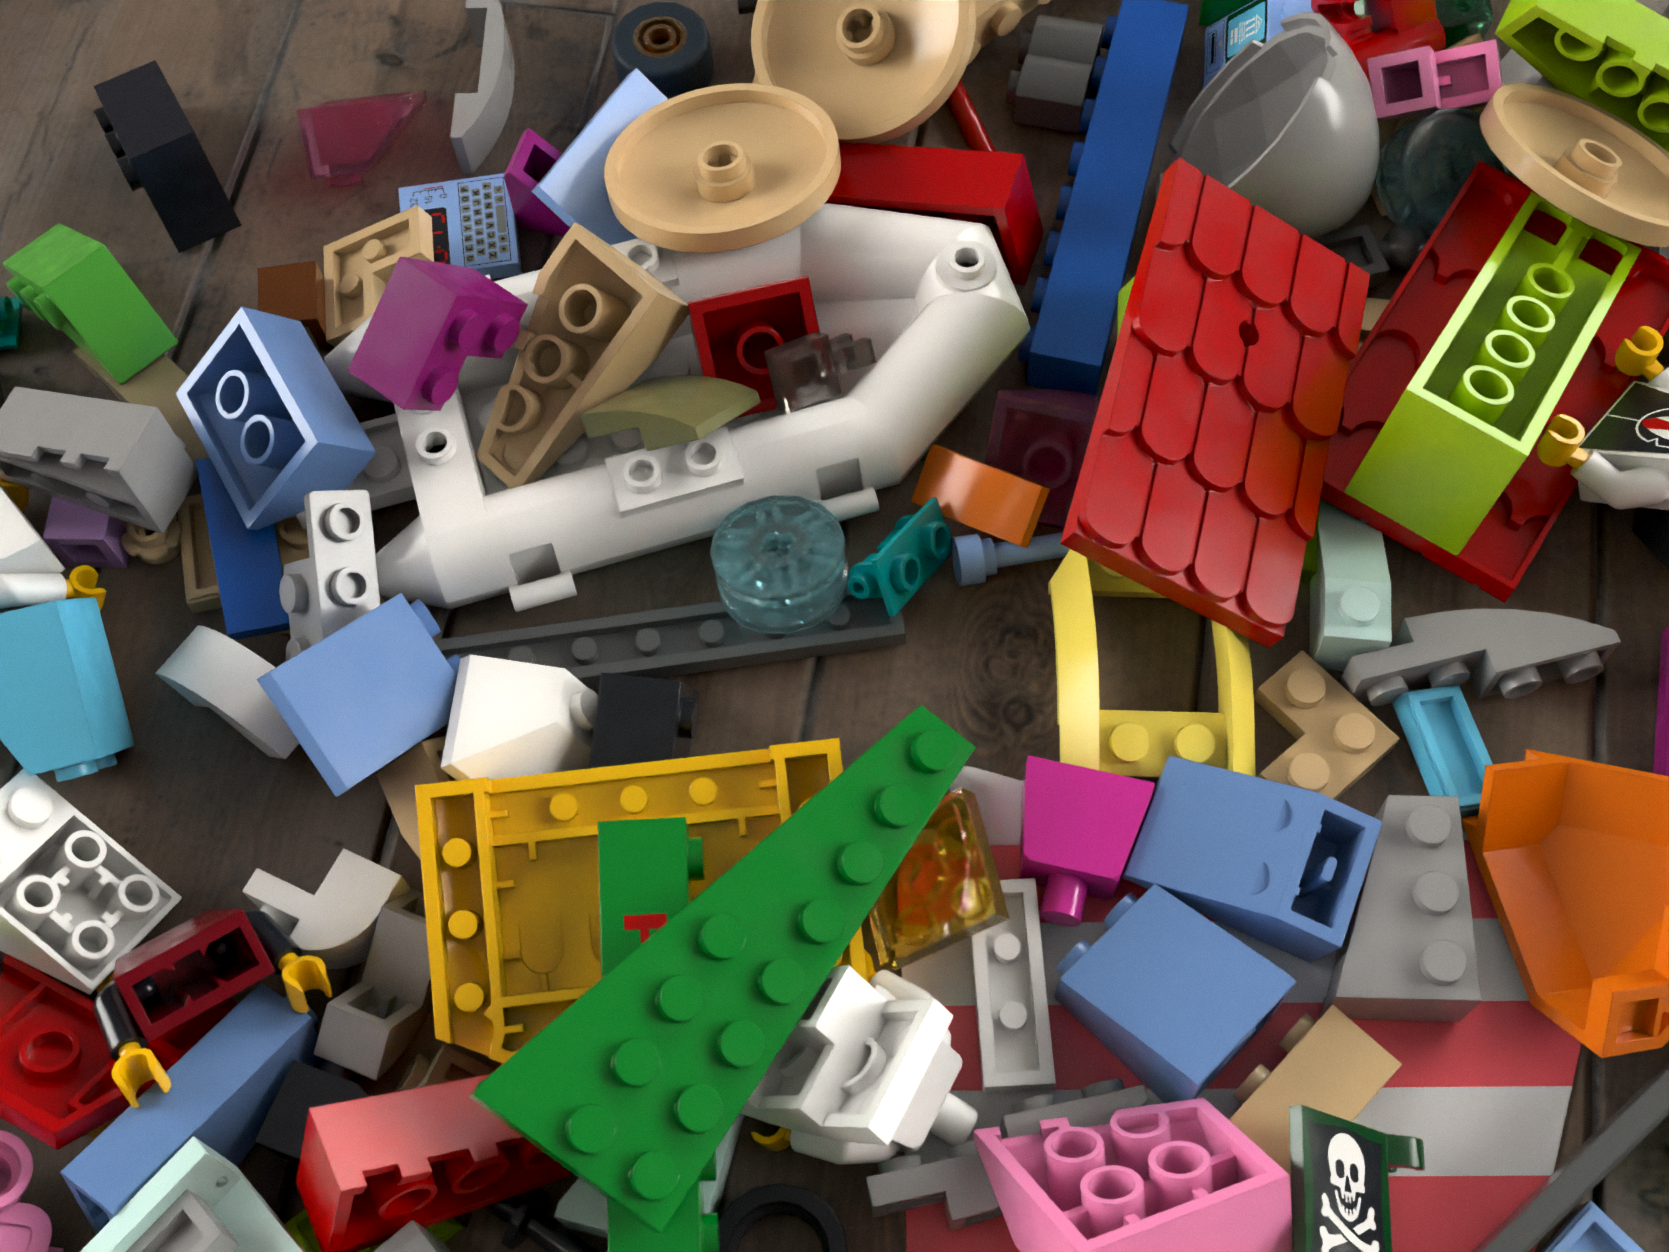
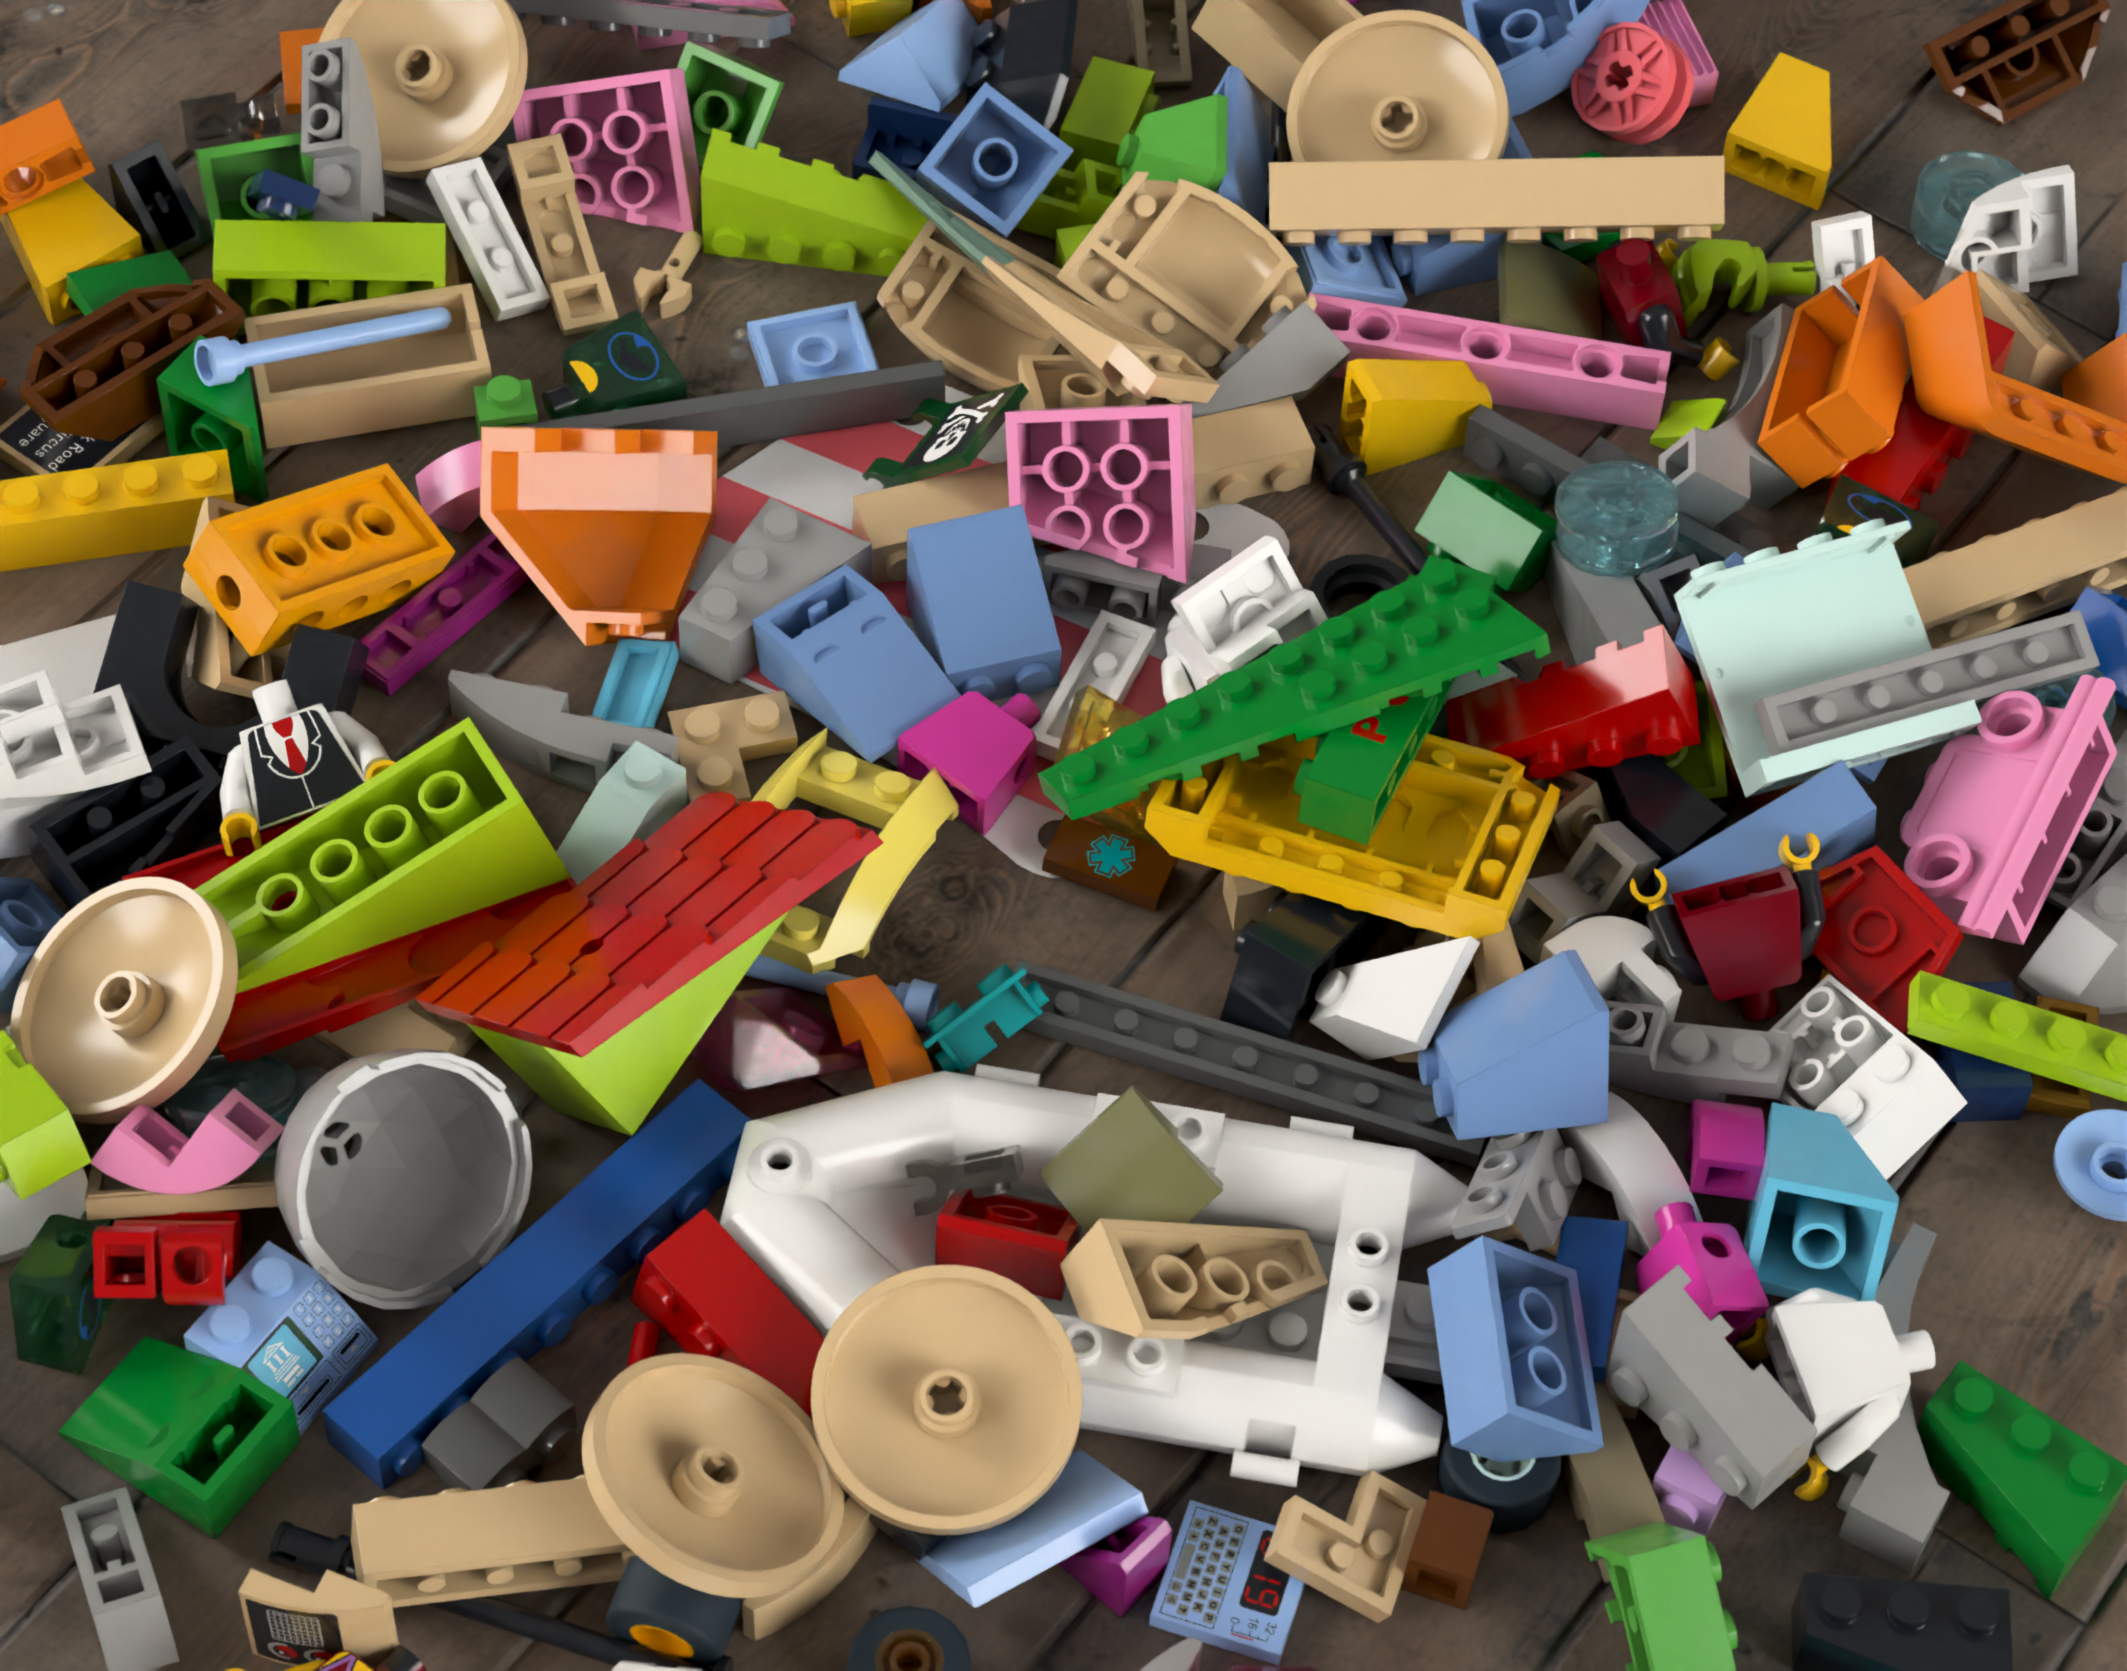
camera: 160 degrees left, 10 degrees down
(134, 580) = (1713, 1260): none -> dark pink torso
(148, 743) = (1725, 1148): none -> dark pink brick
(225, 844) = (1693, 1059): none -> light grey slope
(428, 327) = (1318, 1291): magenta brick -> none
(780, 564) = (1099, 1002): clear light blue wheel -> none

